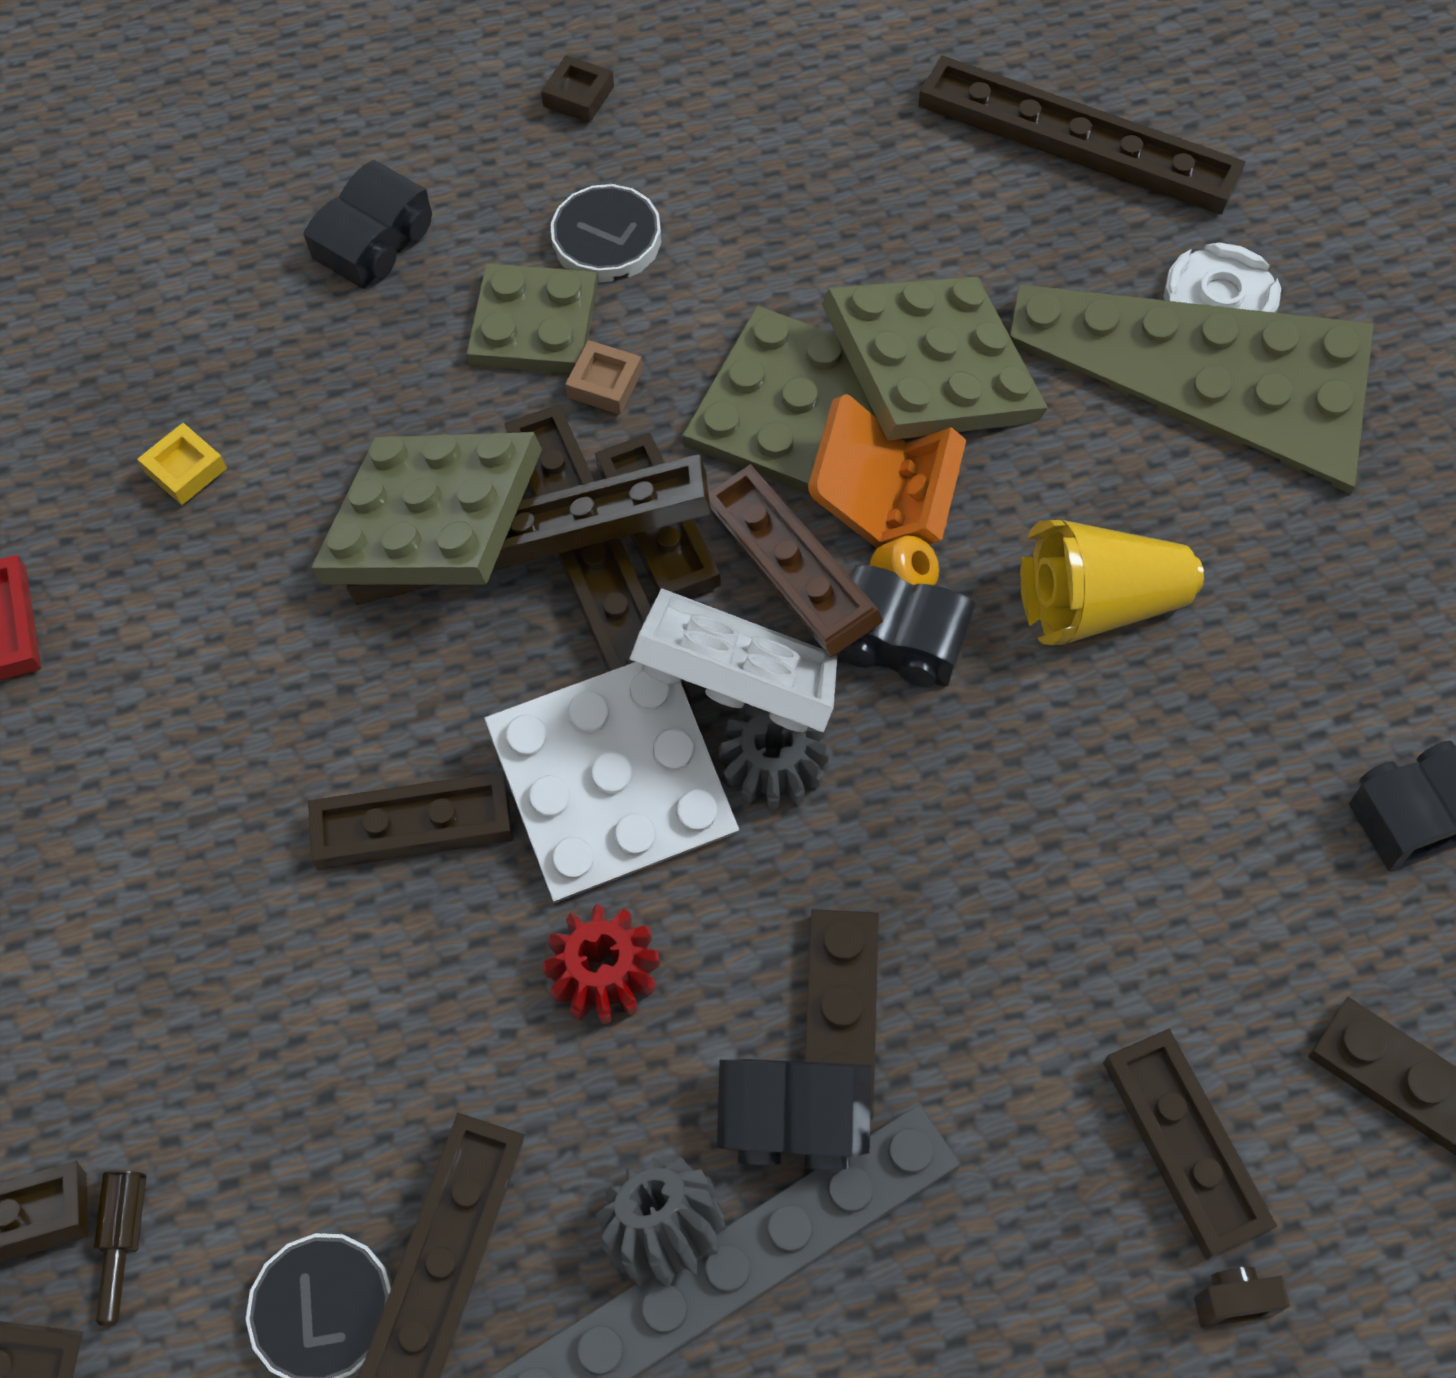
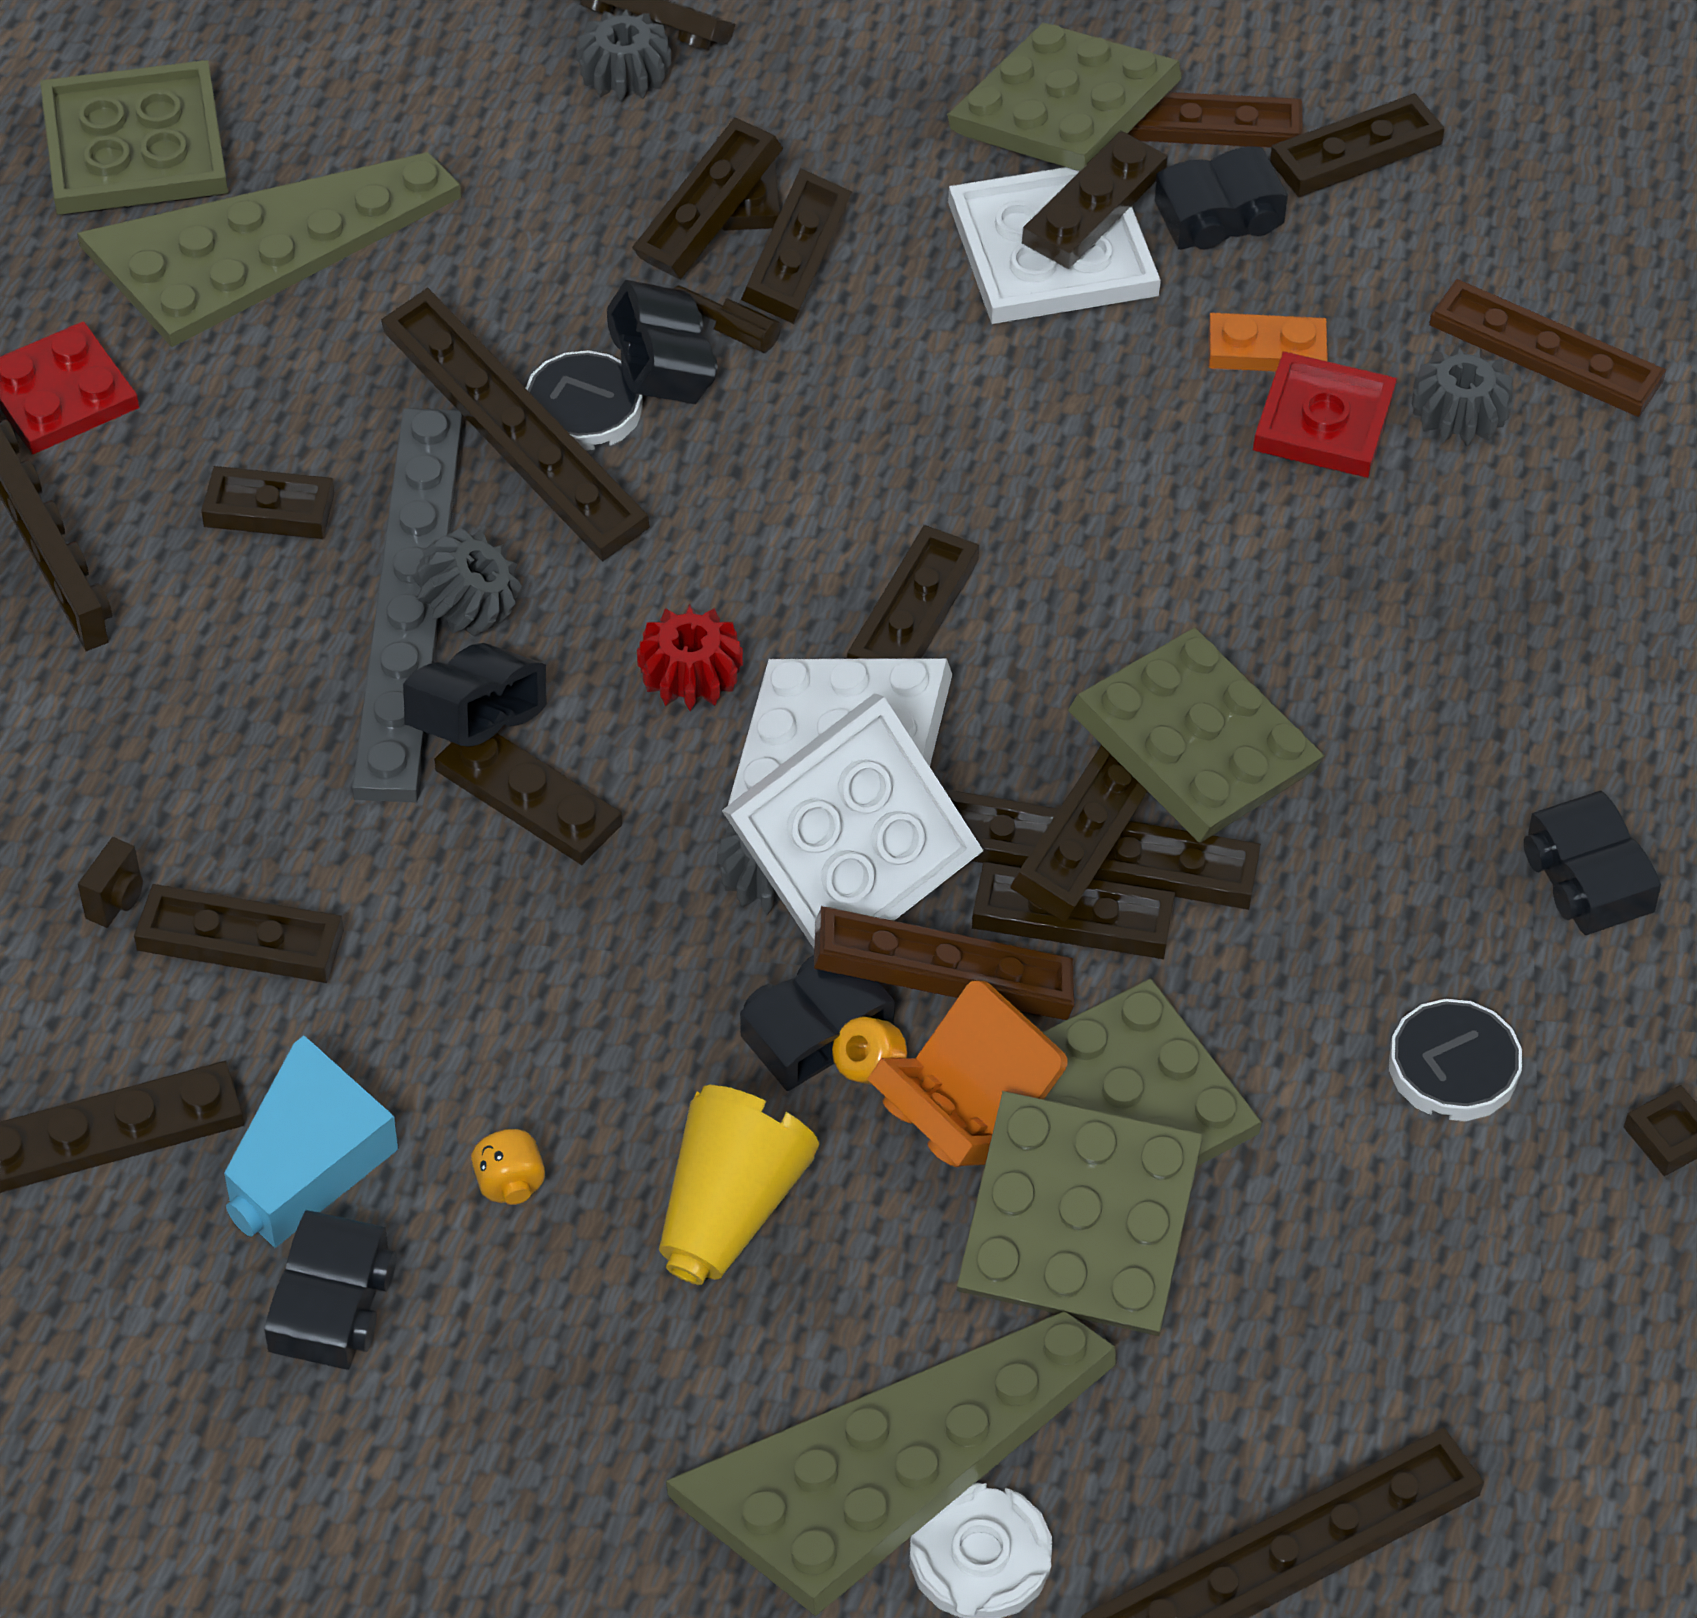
camera: 120 degrees right, 10 degrees down
(182, 463) = (1396, 611): yellow plate -> none
(206, 1265) = (661, 342): none -> black brick
(532, 318) = (1385, 945): olive plate -> none
(604, 377) = (1264, 954): medium nougat plate -> none
(1217, 753) = (508, 1166): none -> light orange piece
(1337, 916) = (305, 1145): none -> medium azure slope

